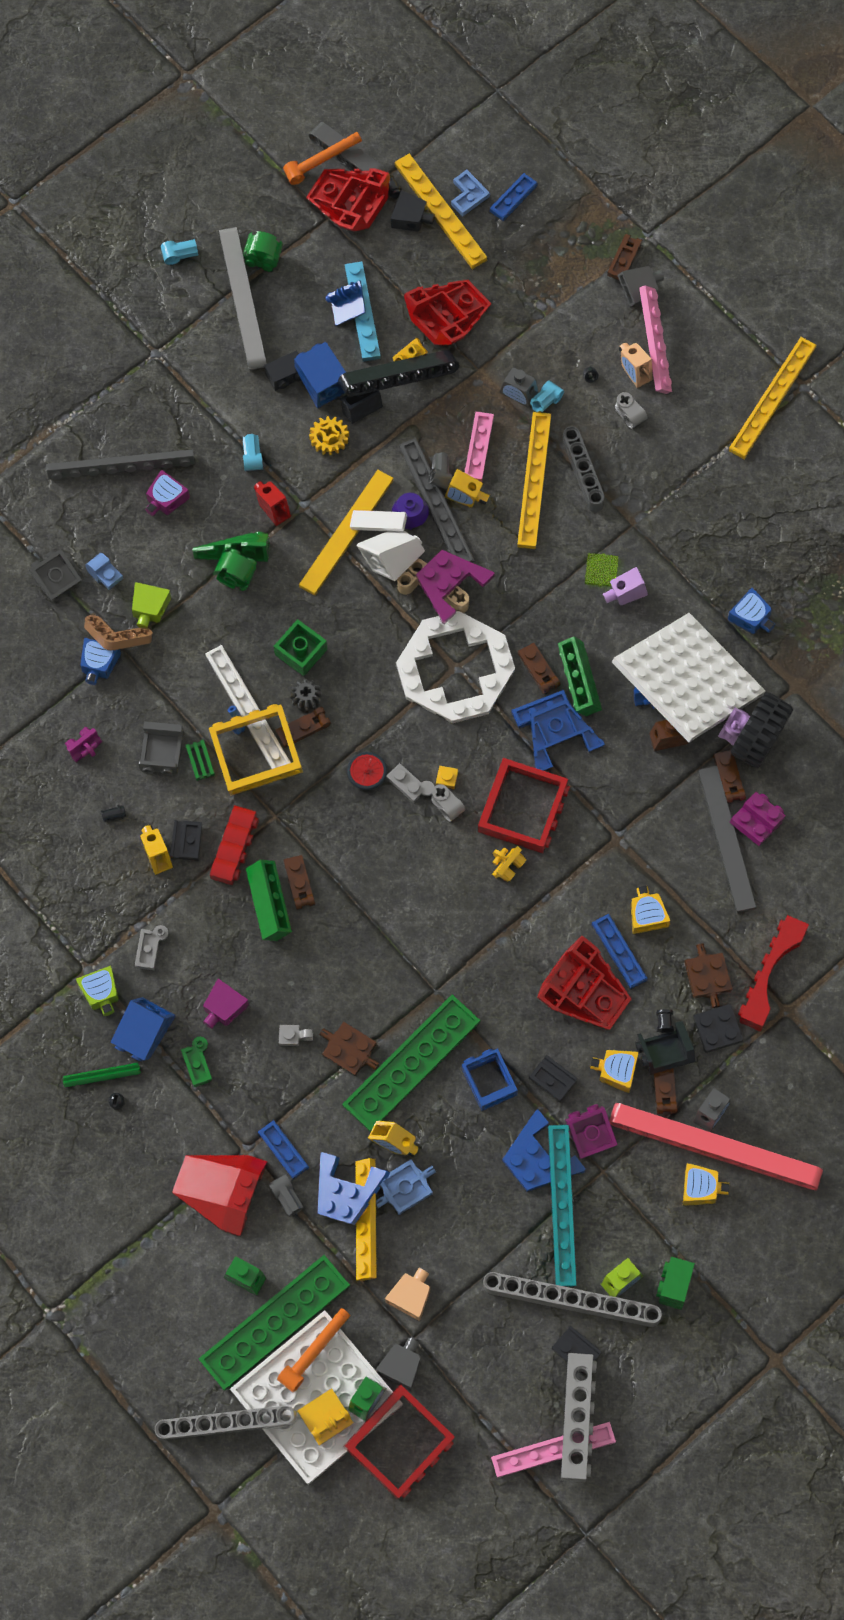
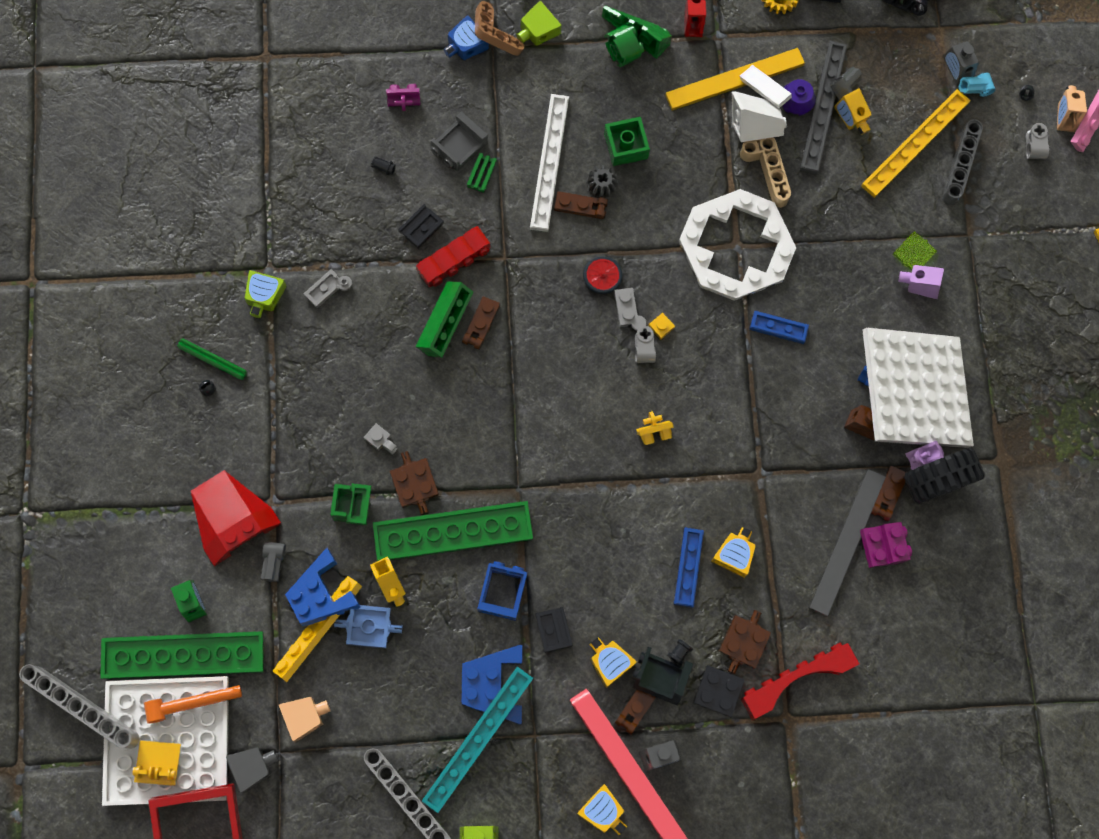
camera: 30 degrees right, 5 degrees up
(142, 1028) = (270, 346): blue slope -> none
(155, 849) = (390, 216): yellow torso -> none
(196, 1062) = (289, 404): green hinge -> none
(223, 1005) = (345, 374): magenta torso -> none
(233, 711) = (535, 162): blue arm -> none
(264, 777) = (521, 222): yellow window -> none
(283, 1150) = (300, 523): blue tile -> none
(314, 1101) = (351, 503): none -> green plate
(366, 1398) = (200, 773): green torso -> none
(443, 575) = (784, 165): magenta wing -> none
(479, 445) = (893, 85): bright pink plate -> none
(514, 837) = (682, 370): red window -> none
(538, 668) = (802, 293): reddish brown plate -> none
(557, 725) = (781, 349): blue wing -> none
(579, 676) = (829, 323): green brick -> none
(584, 987) = (636, 575): red wedge -> none
(591, 1131) = (549, 696): magenta plate -> none
(752, 613) = (1011, 375): torso -> none

